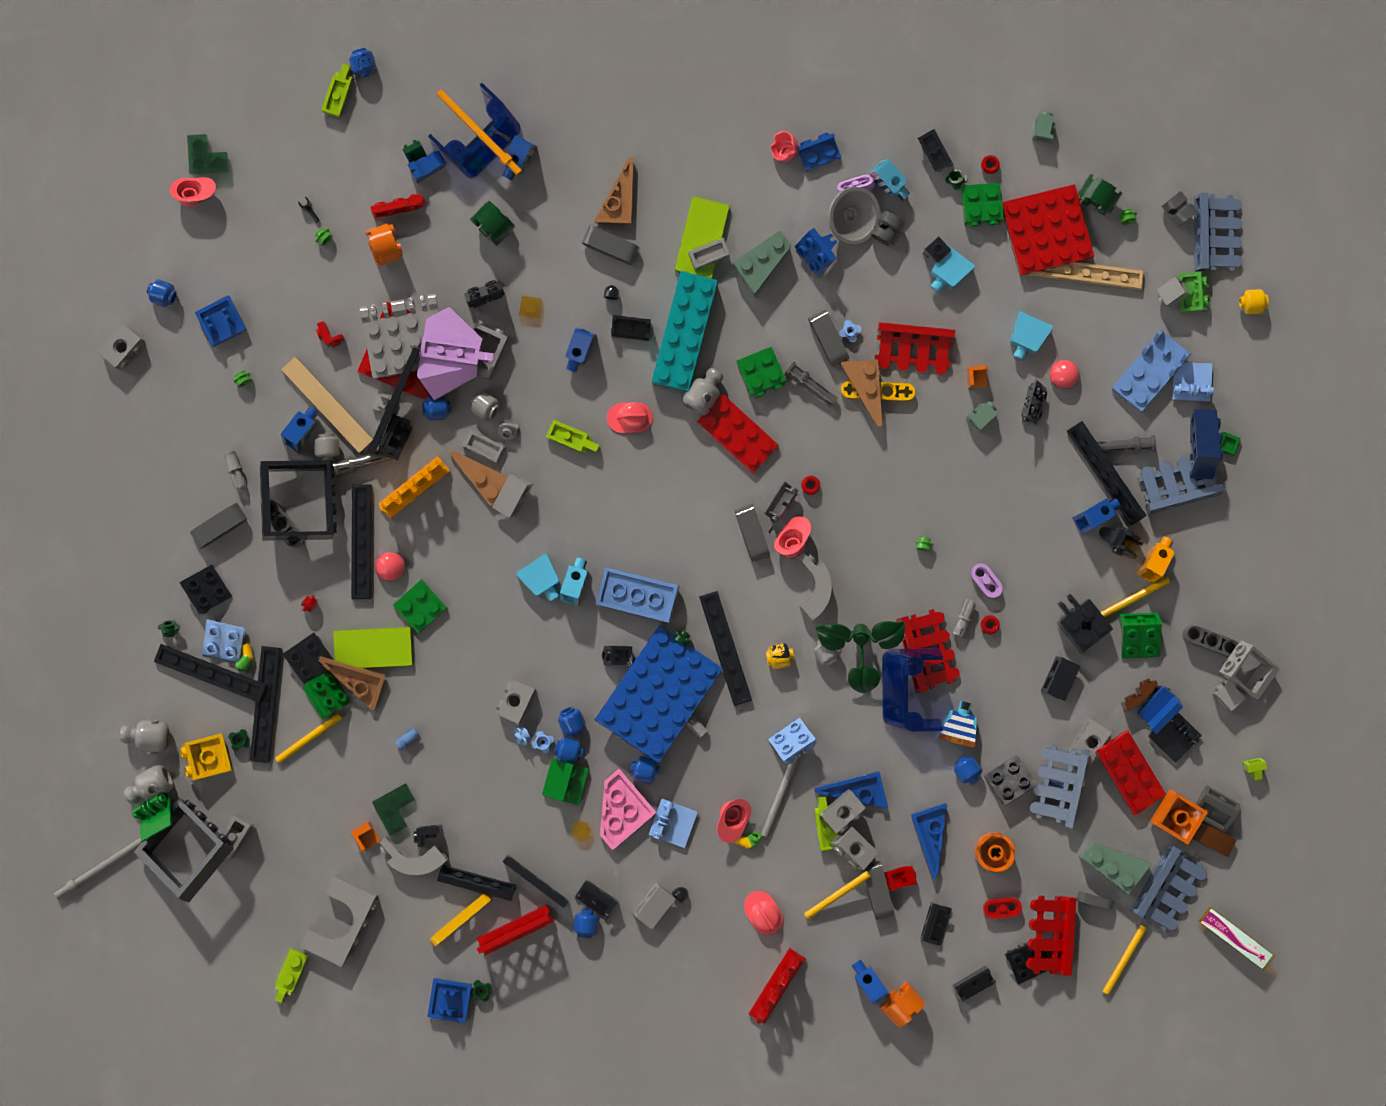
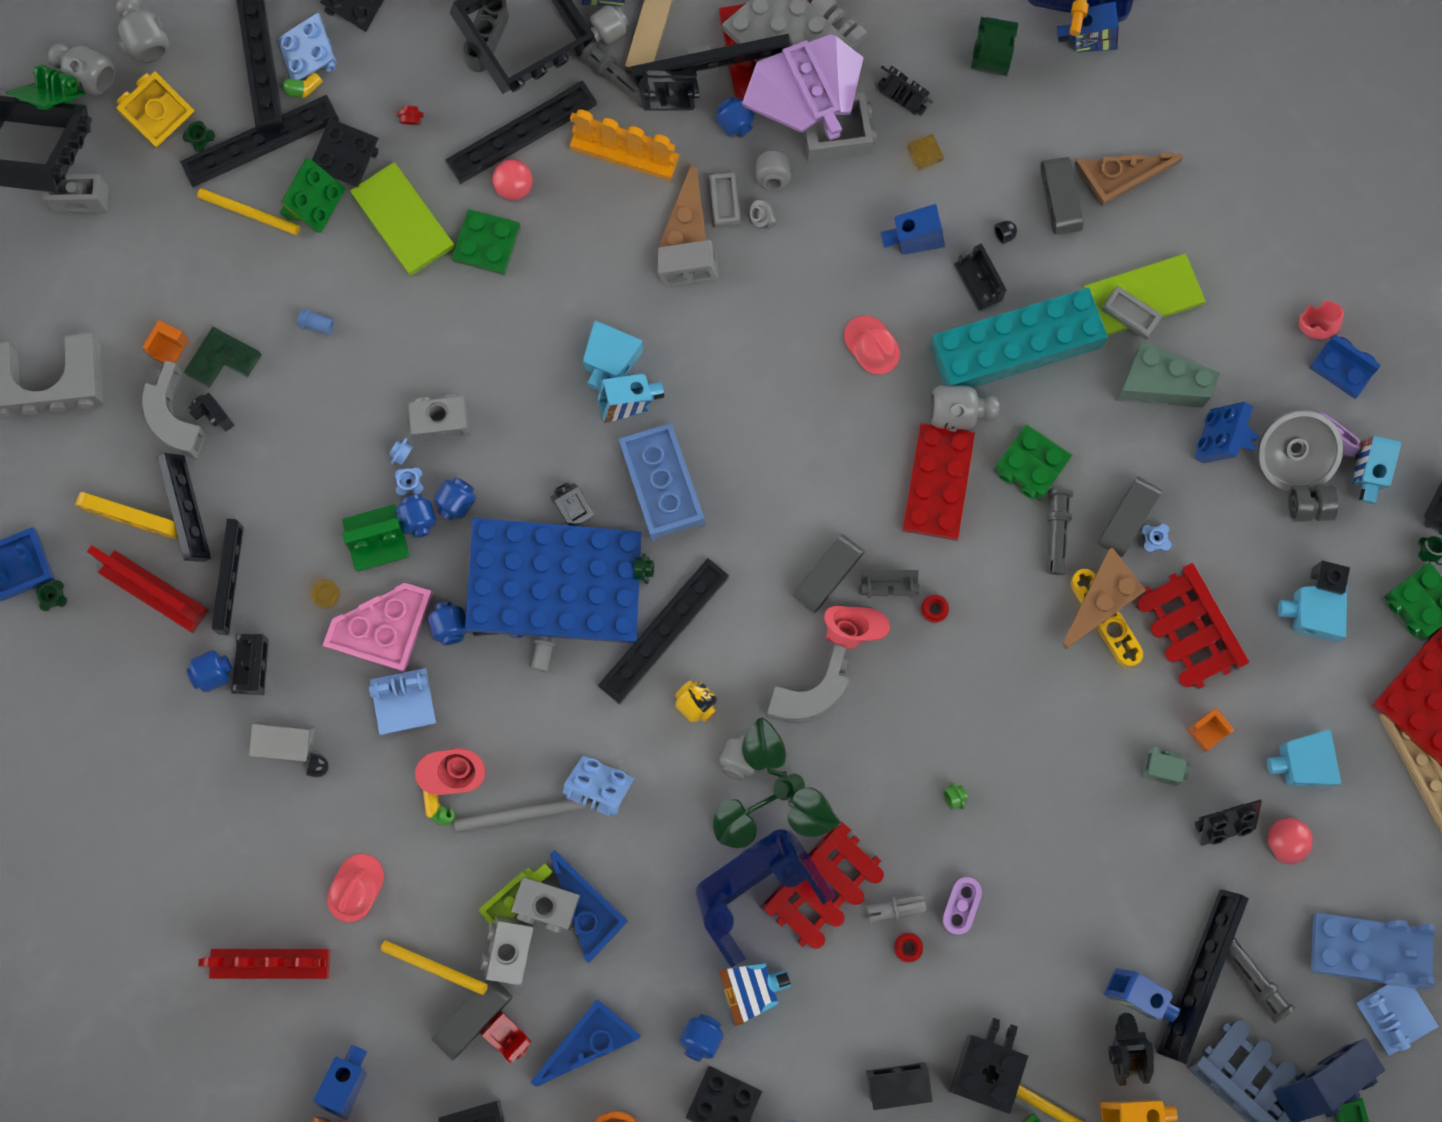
camera: 65 degrees right, 10 degrees down
(362, 682) = (352, 229): medium nougat wing -> none
(571, 437) = (802, 290): lime hinge -> none

